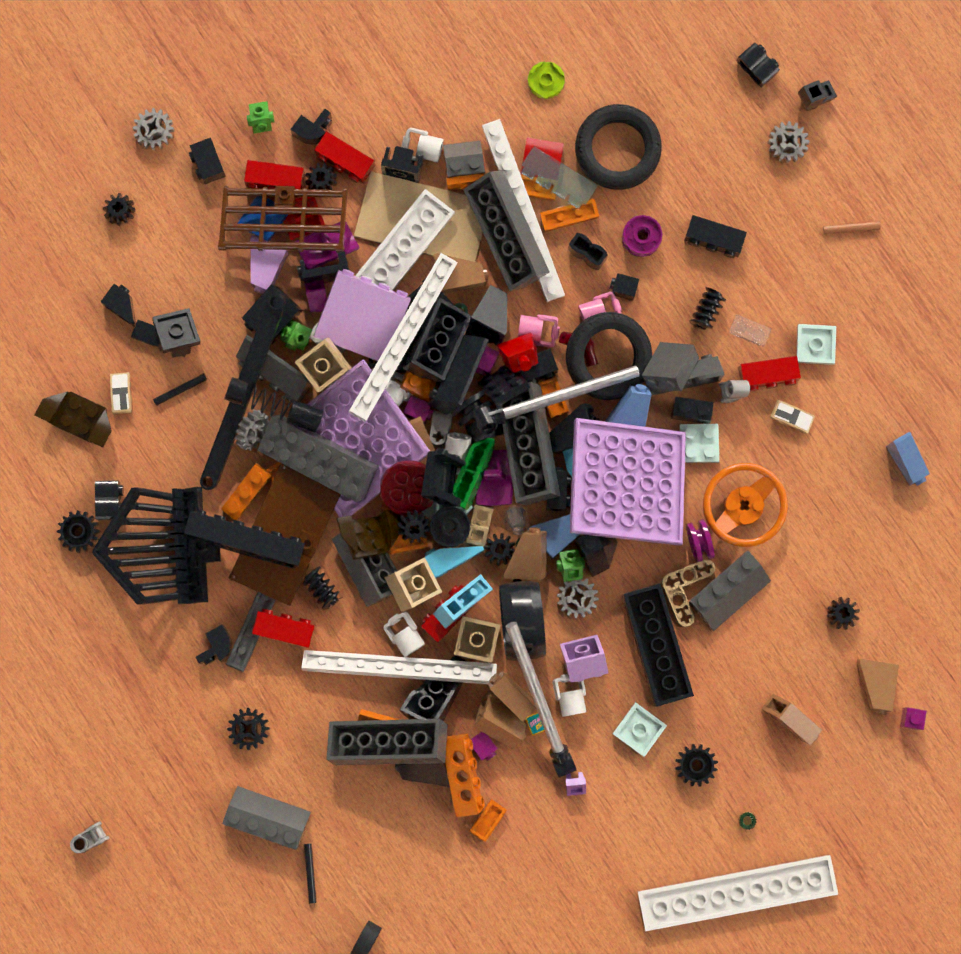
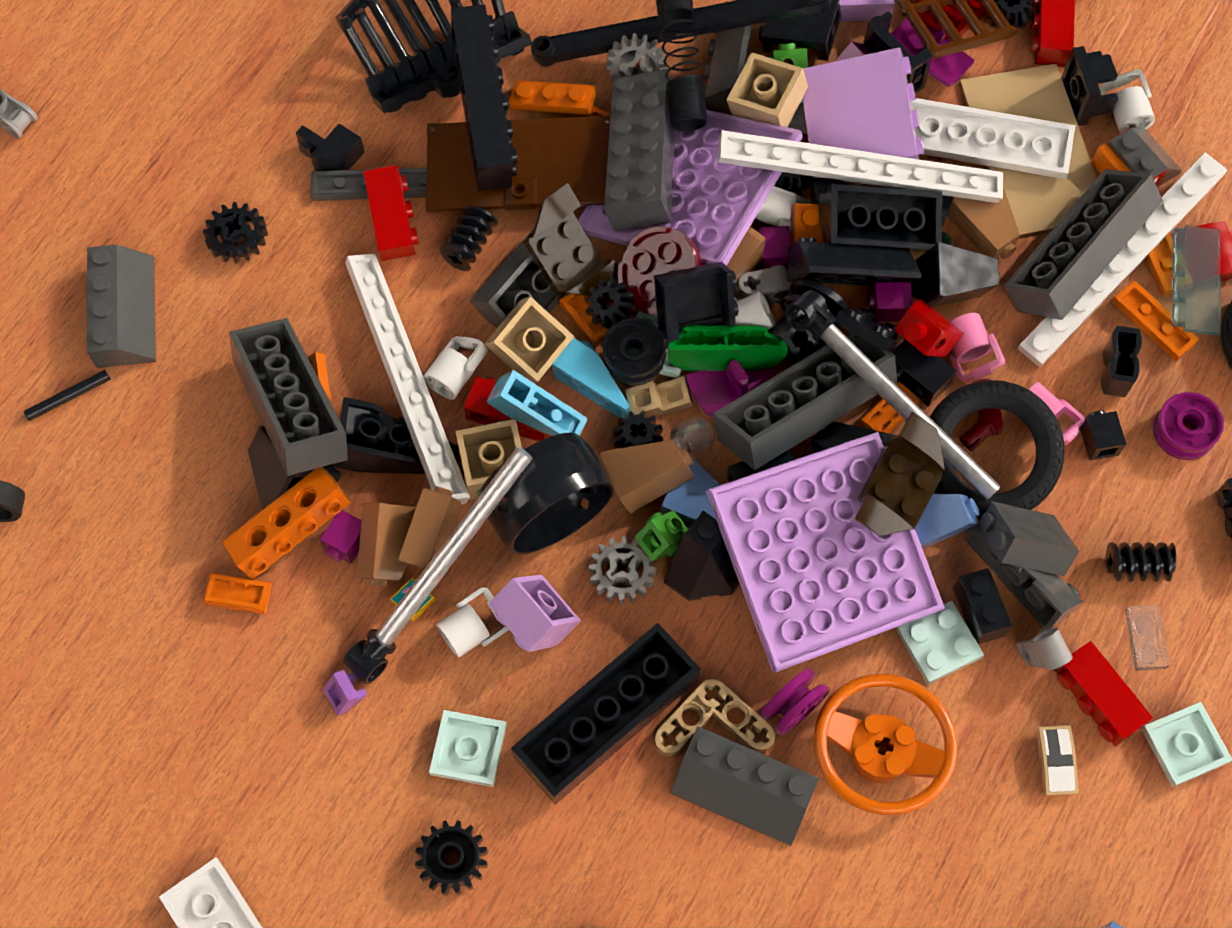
camera: 65 degrees right, 15 degrees down
(613, 422) = (902, 479): none -> dark brown piece

